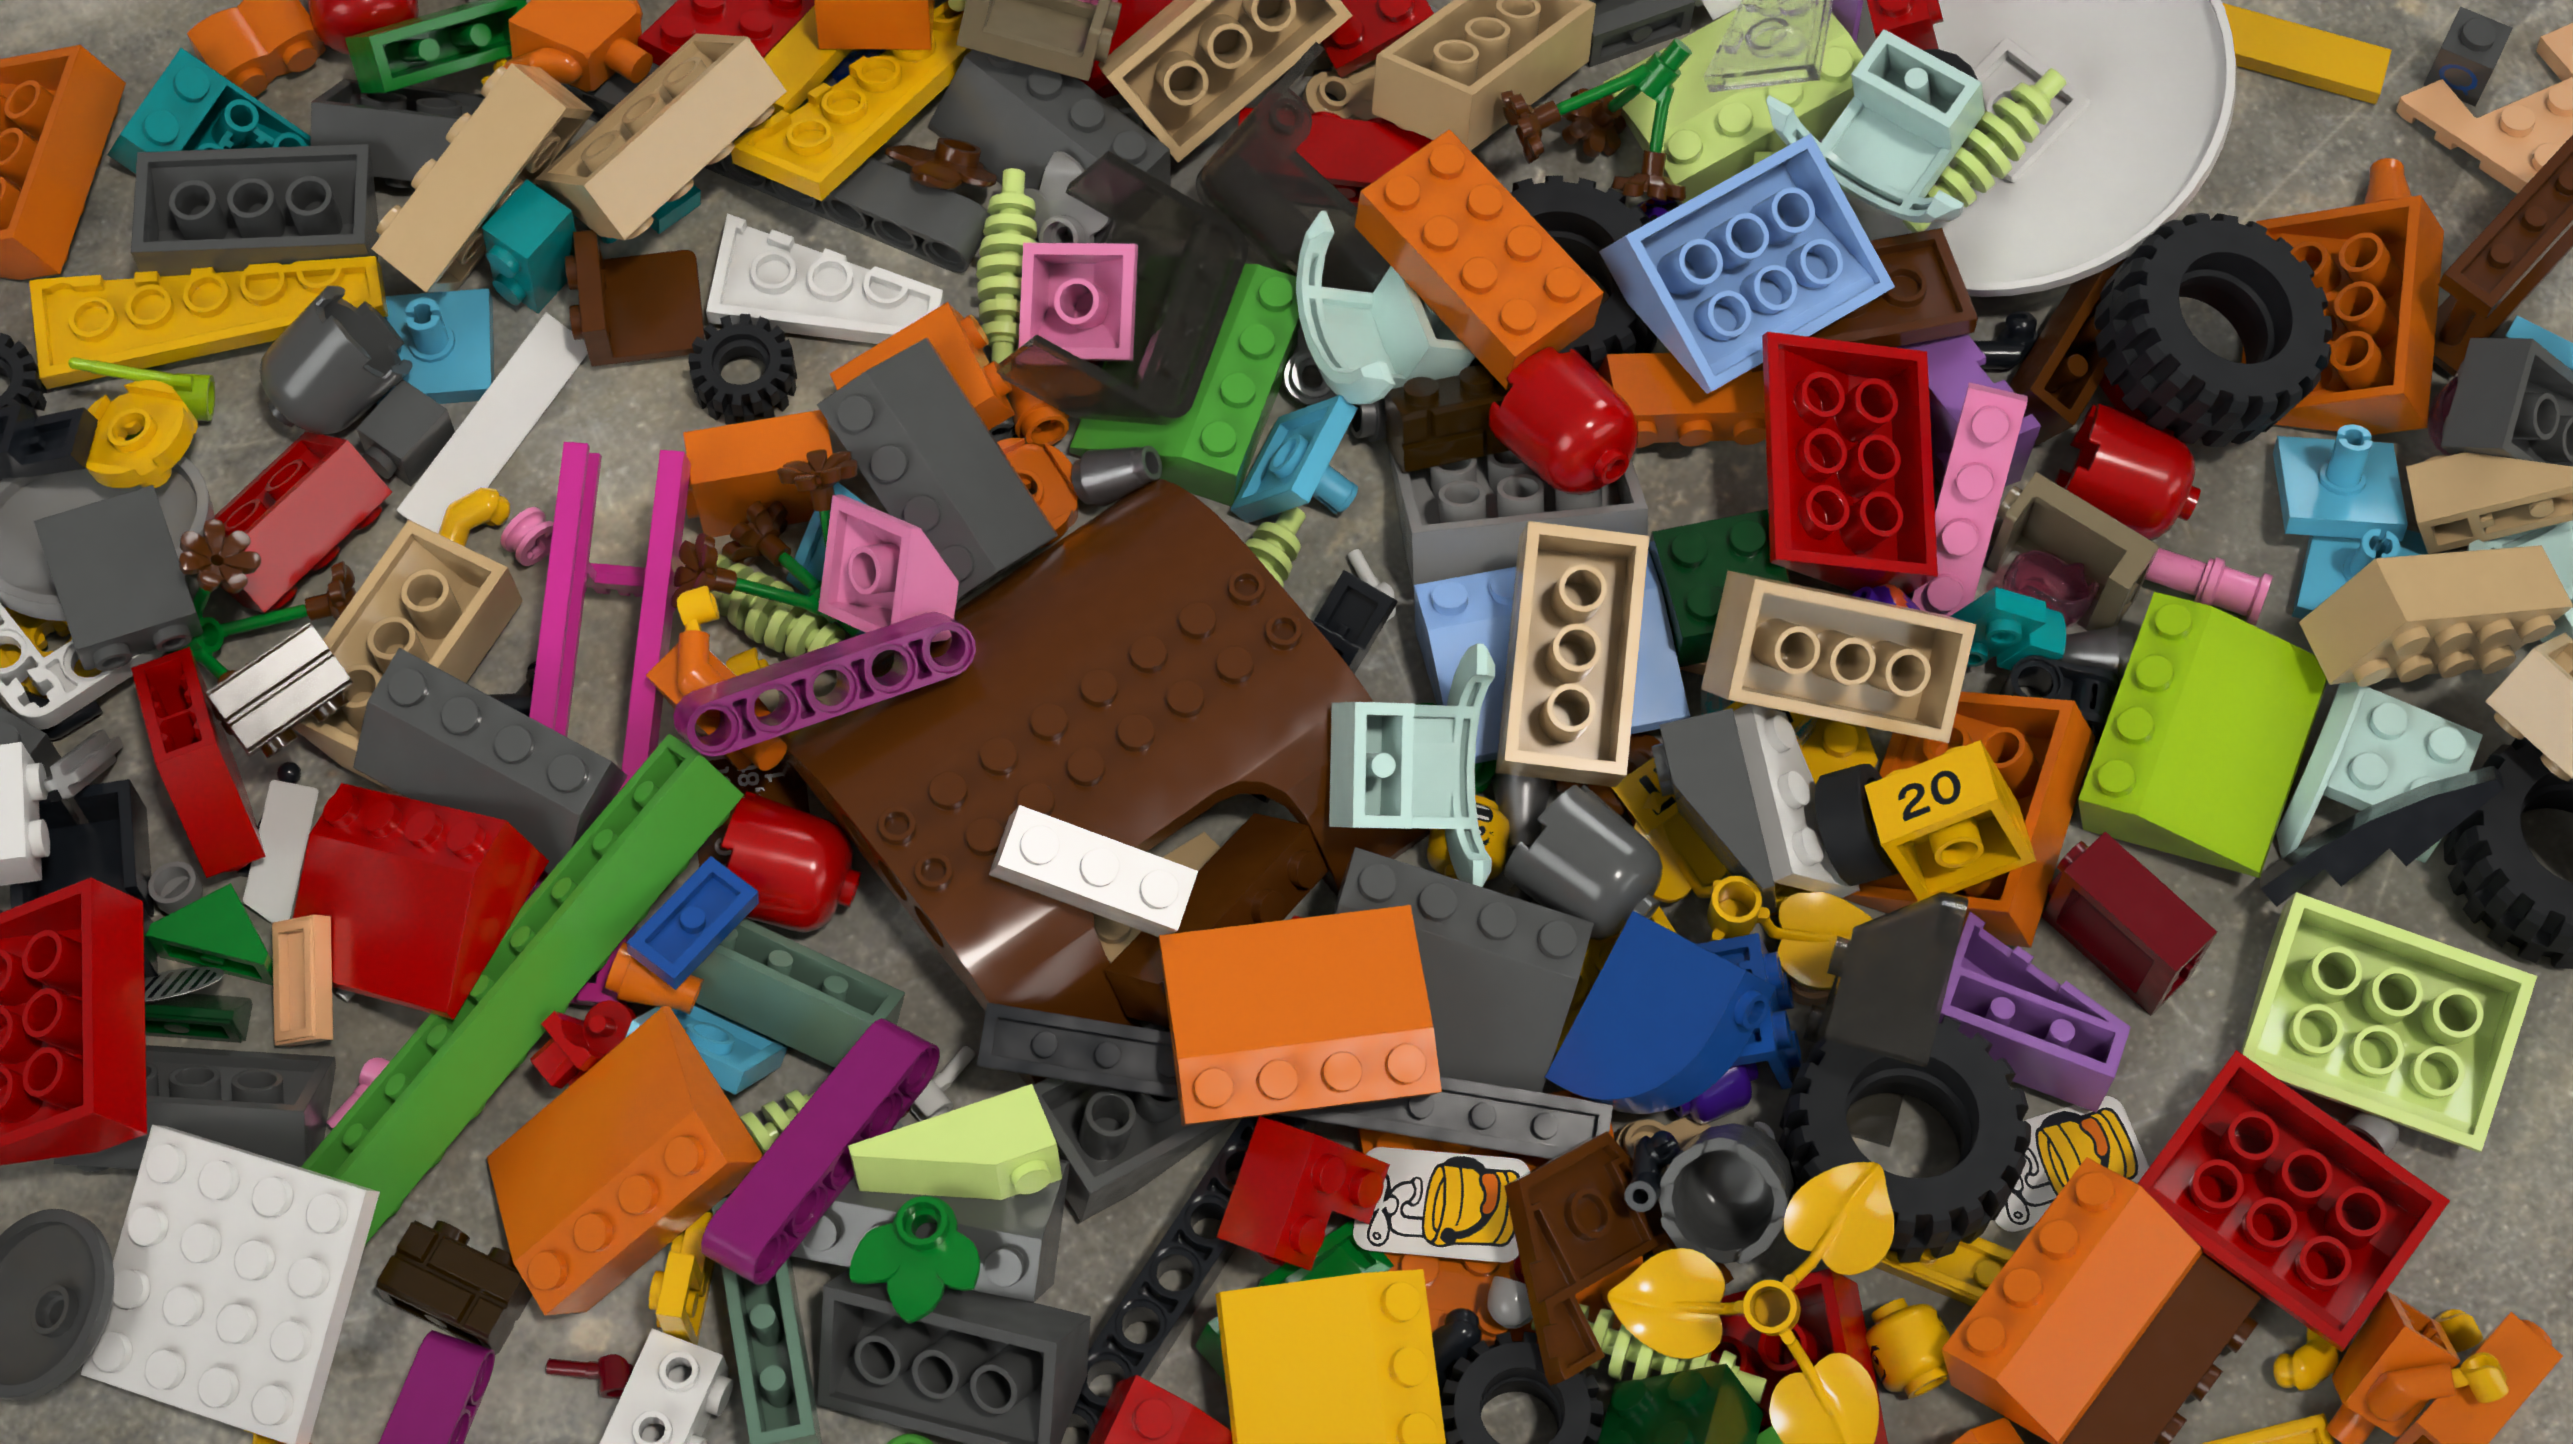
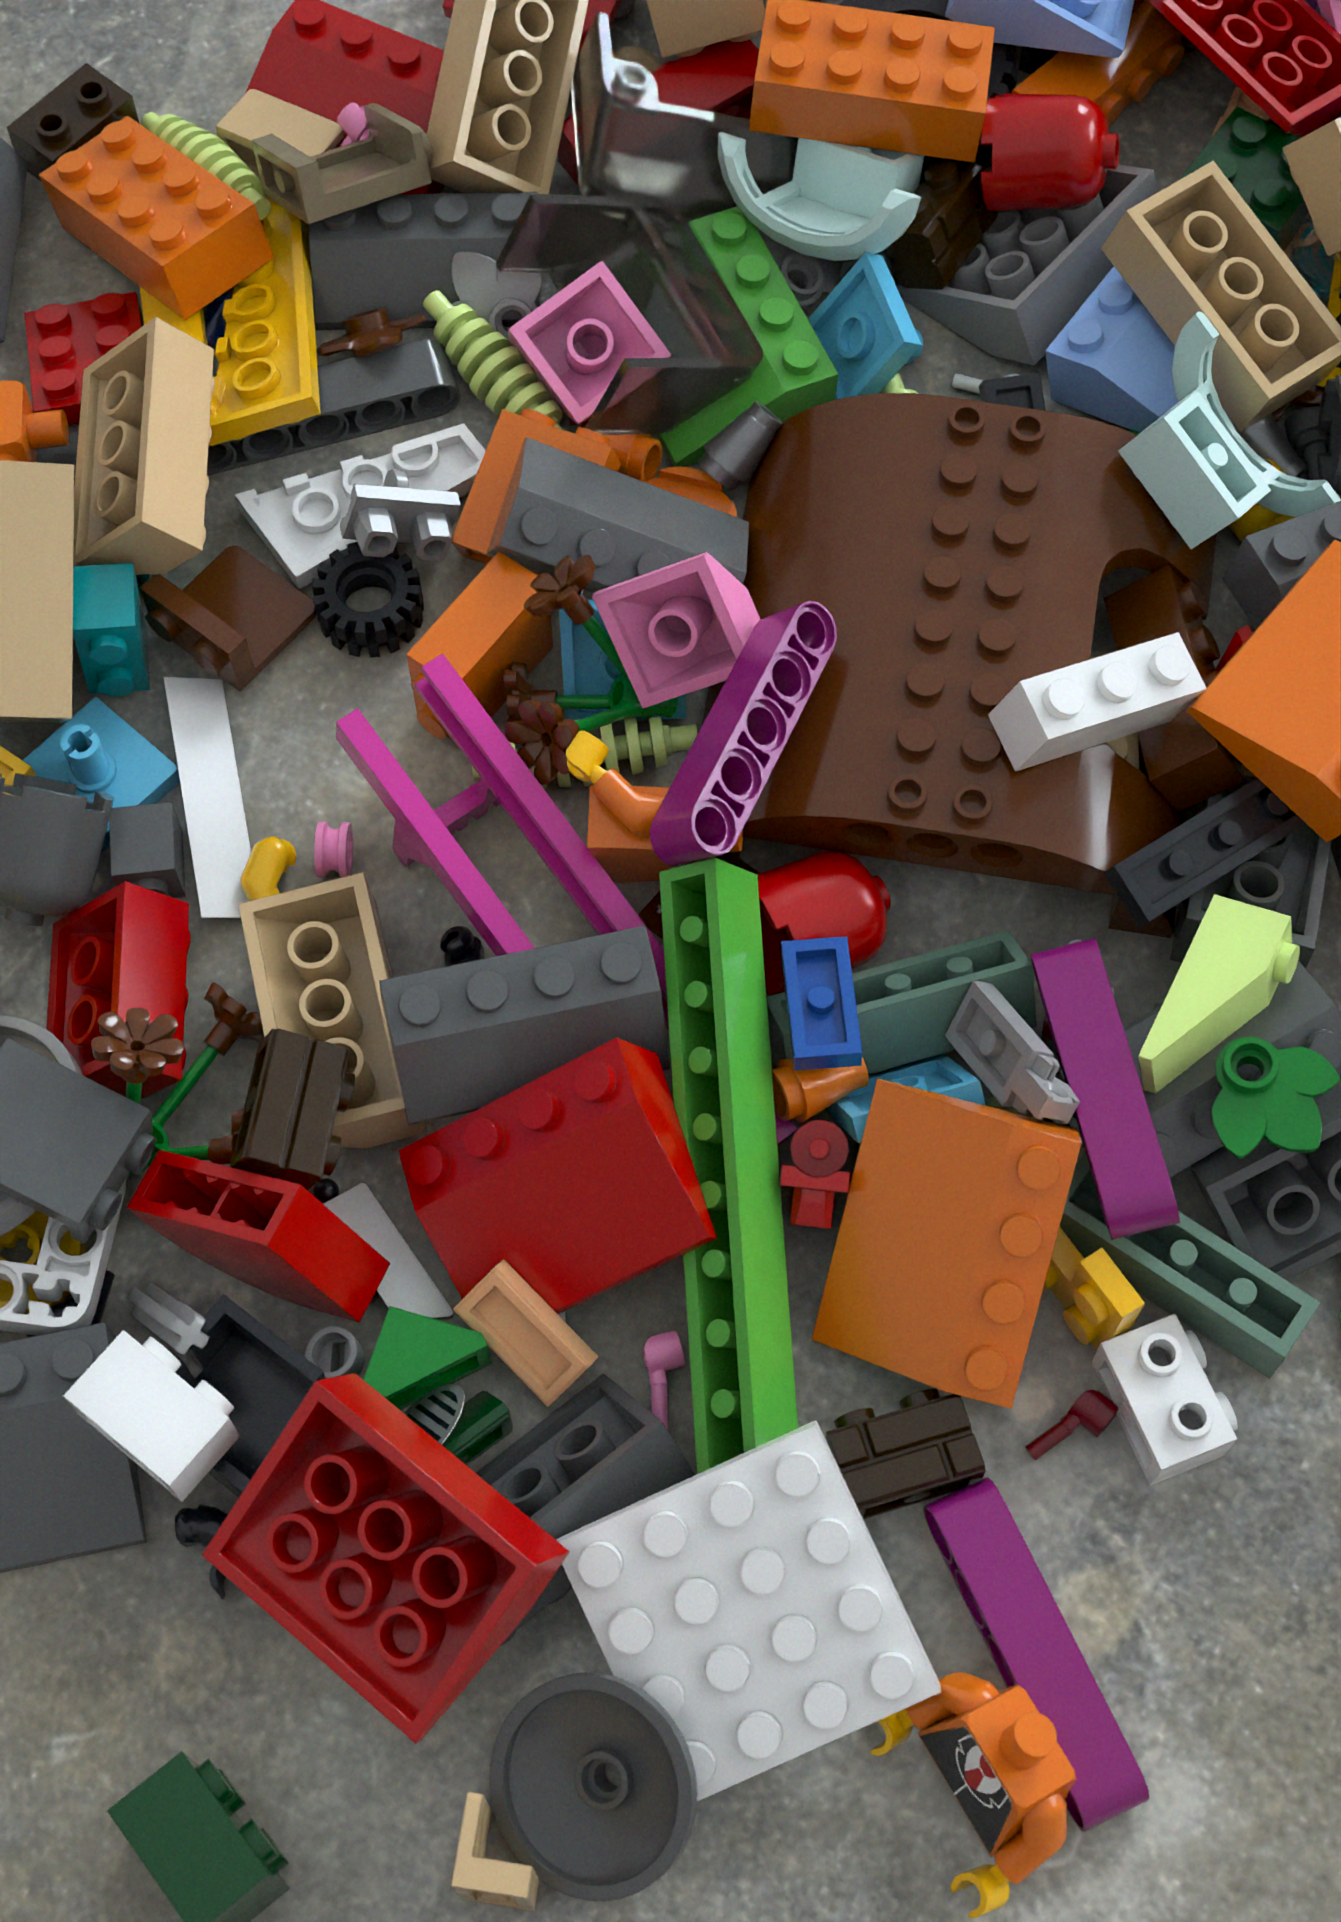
camera: 40 degrees left, 0 degrees up
(782, 1073) = (1009, 1056): none -> light grey hinge
(812, 321) = (400, 514): none -> light grey hips

